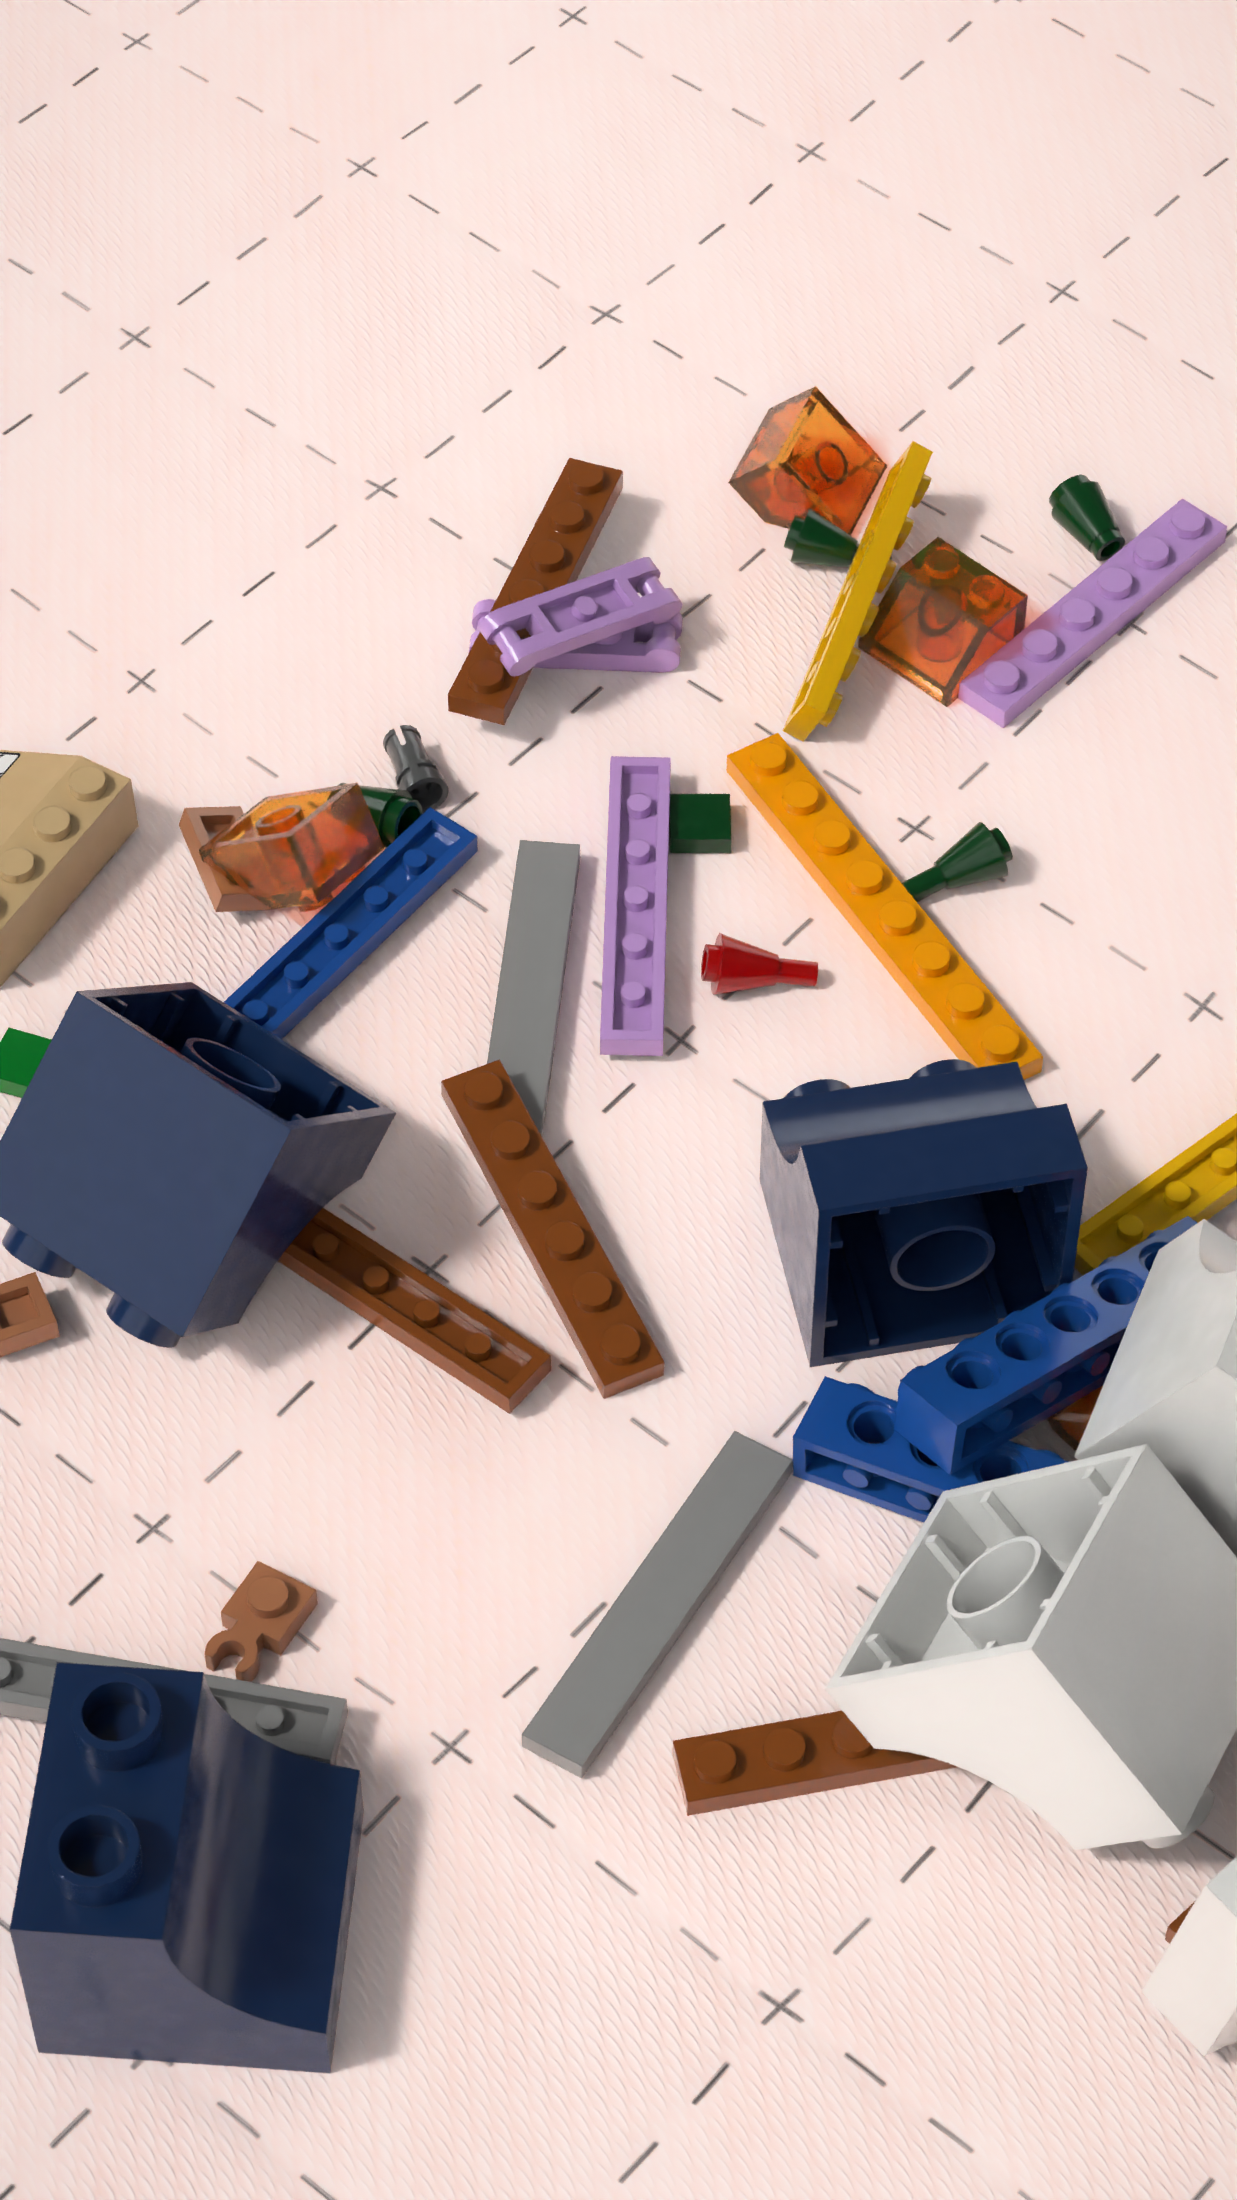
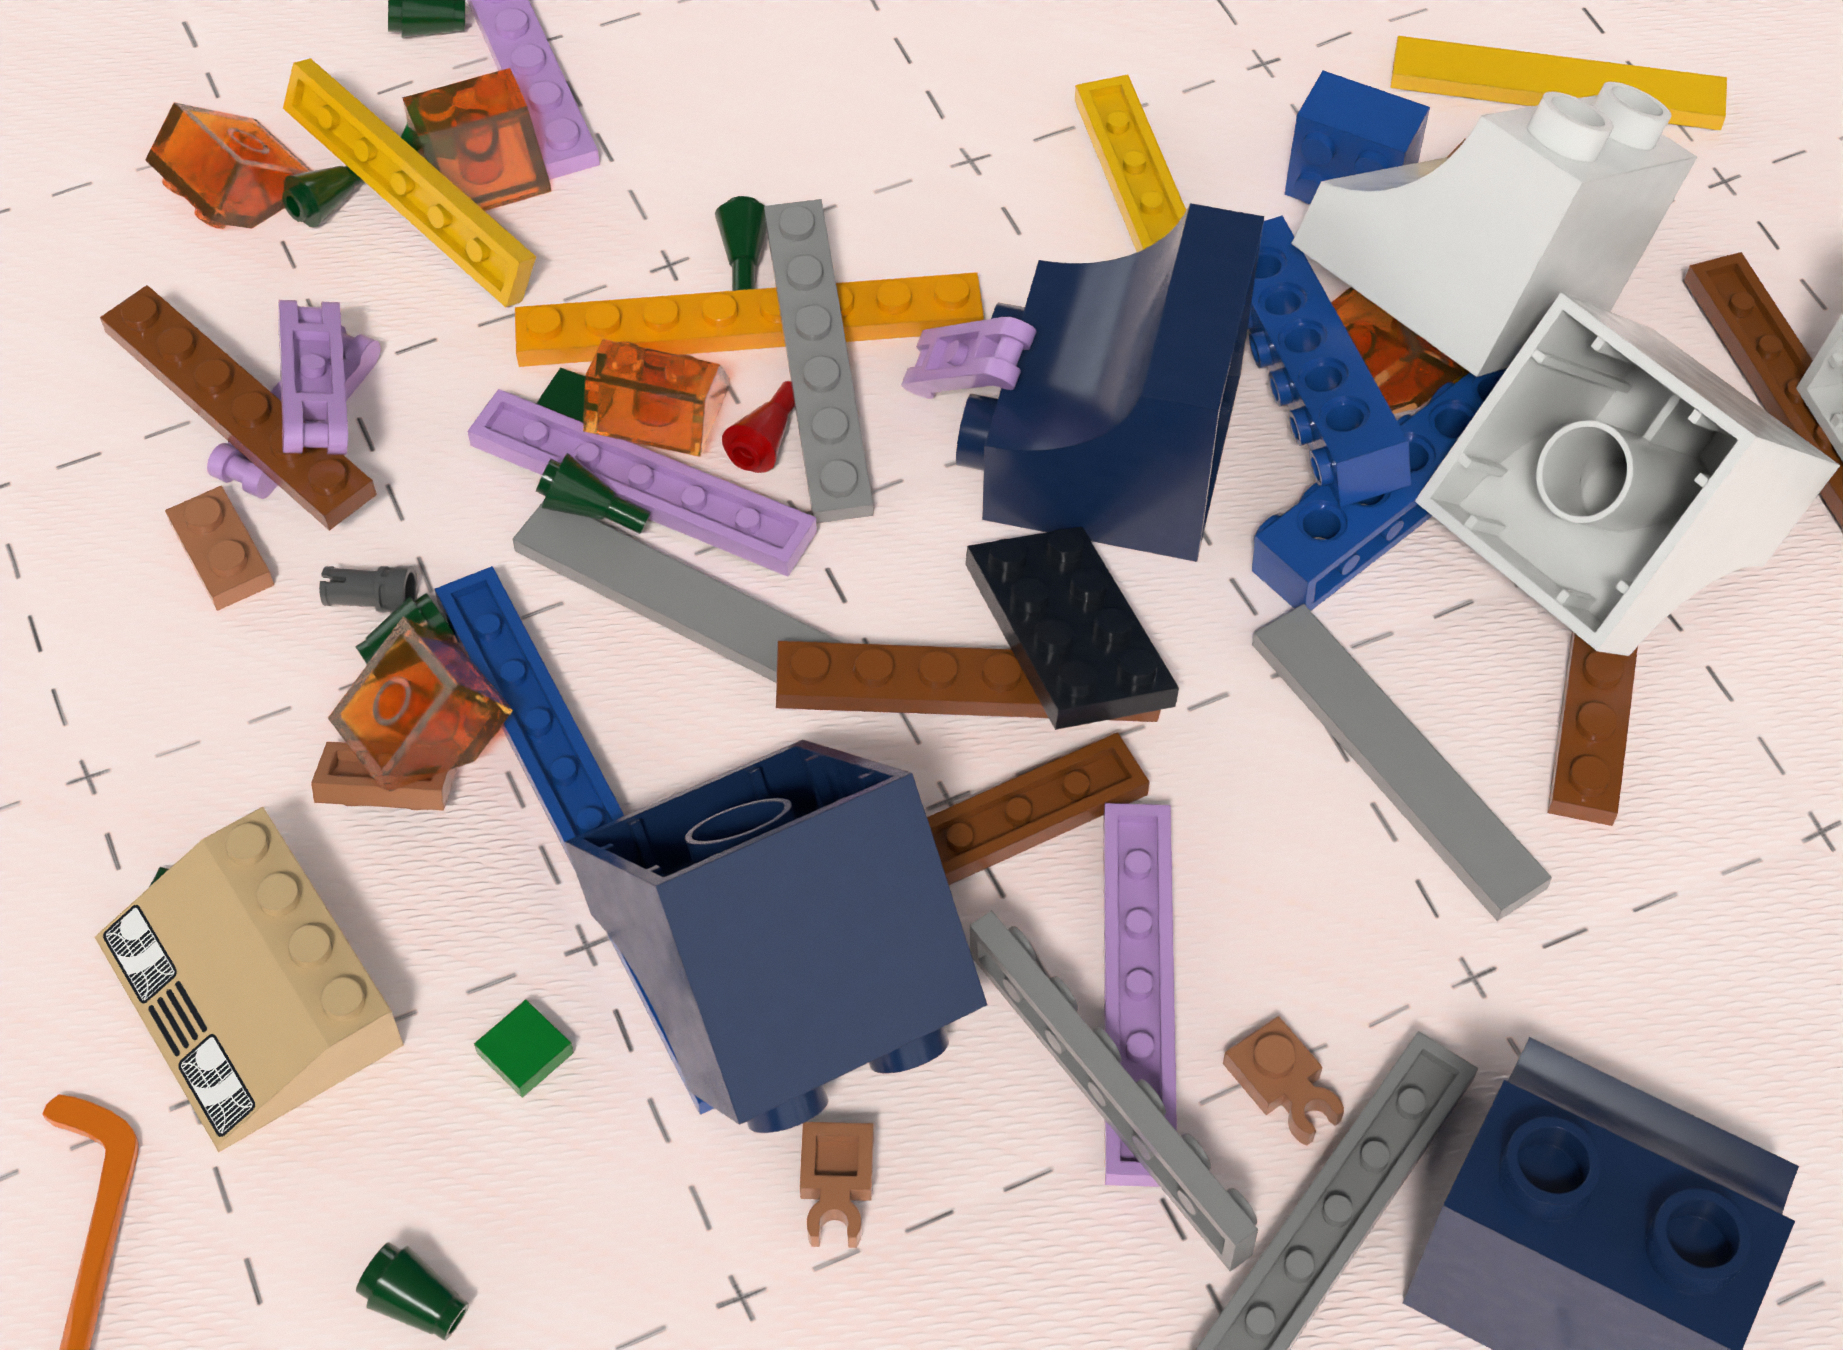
camera: 65 degrees left, 5 degrees up
(144, 1476) = (1128, 1106): none -> light grey plate
(289, 1473) = (1139, 963): none -> lavender plate
(403, 655) = (219, 548): none -> nougat plate
(584, 852) = (577, 491): none -> dark green cone
(642, 1272) = (1070, 628): none -> black plate
(725, 864) = (653, 397): none -> clear orange slope
(846, 969) = (818, 362): none -> light grey plate
(875, 1059) = (969, 356): none -> lavender plate

